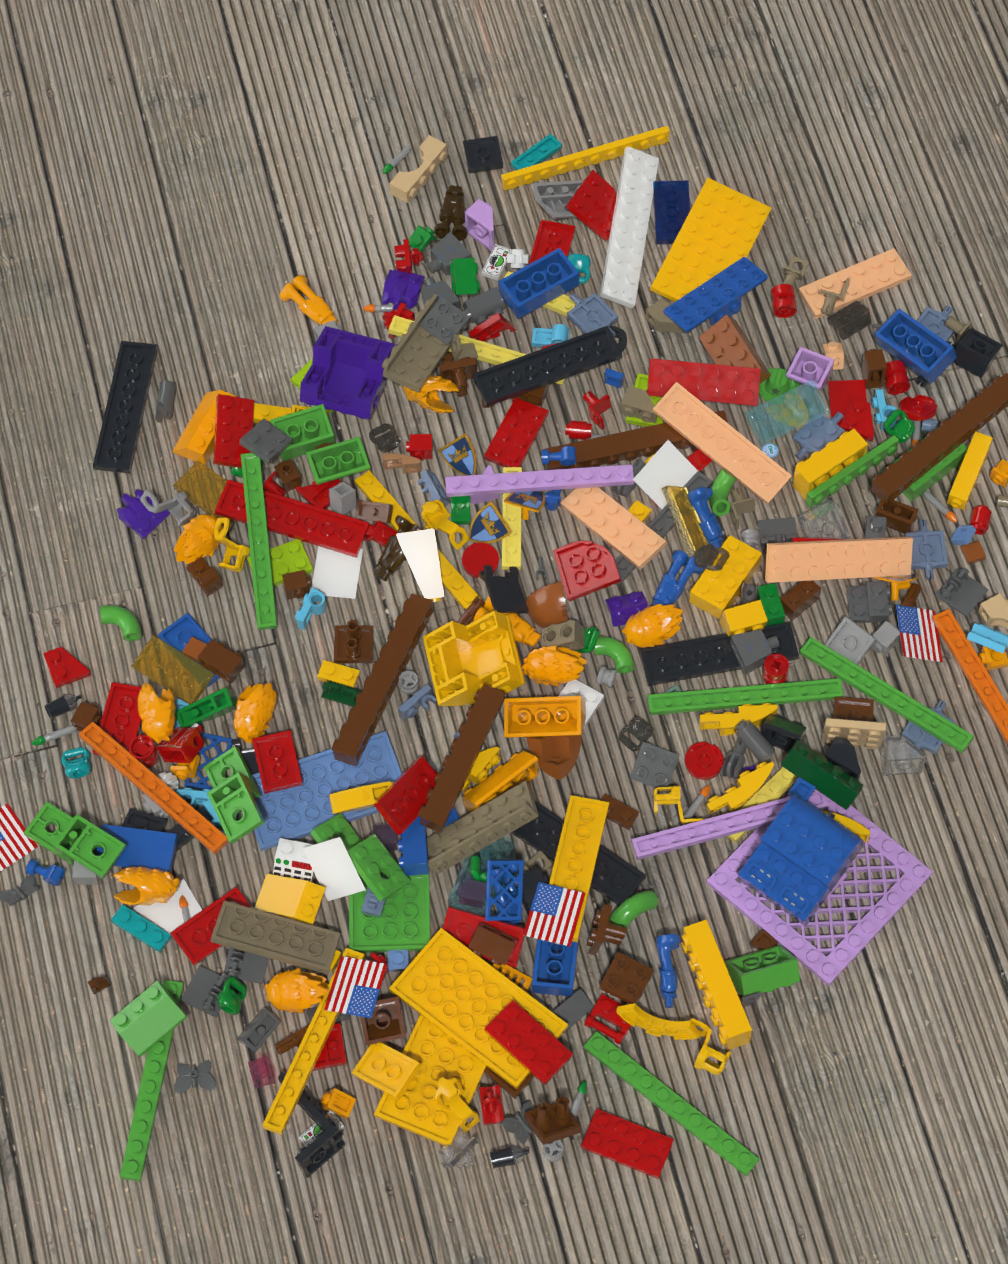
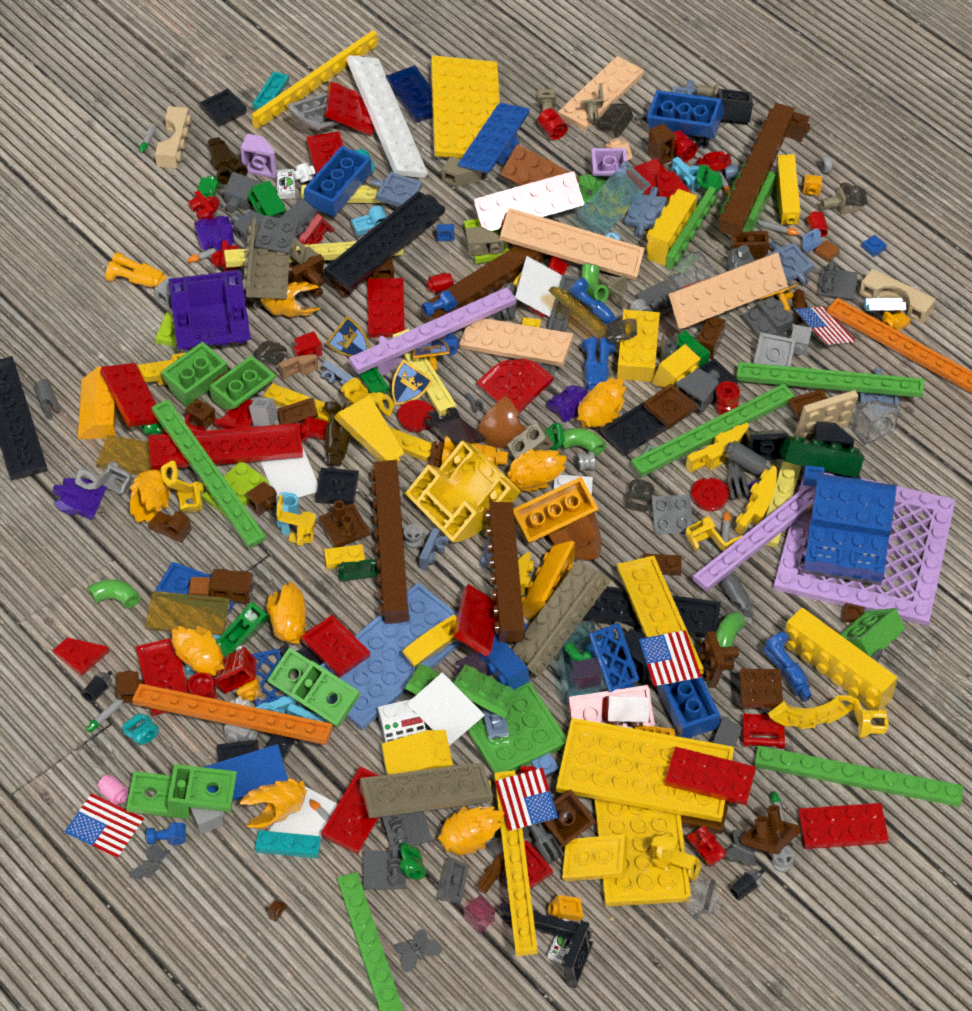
camera: 30 degrees left, 10 degrees down
(23, 809) = (113, 789): none -> bright pink brick
(148, 1018) = (346, 913): bright green slope -> none
(265, 441) = (169, 388): dark grey plate -> none
(316, 628) = (305, 523): none -> yellow piece
(353, 1028) = (546, 844): none -> dark grey arm
(369, 602) = (337, 485): none -> black plate
(597, 407) = (445, 259): red bracket -> none
(667, 874) = (737, 594): none -> dark grey piece
(715, 655) = (670, 406): none -> reddish brown plate

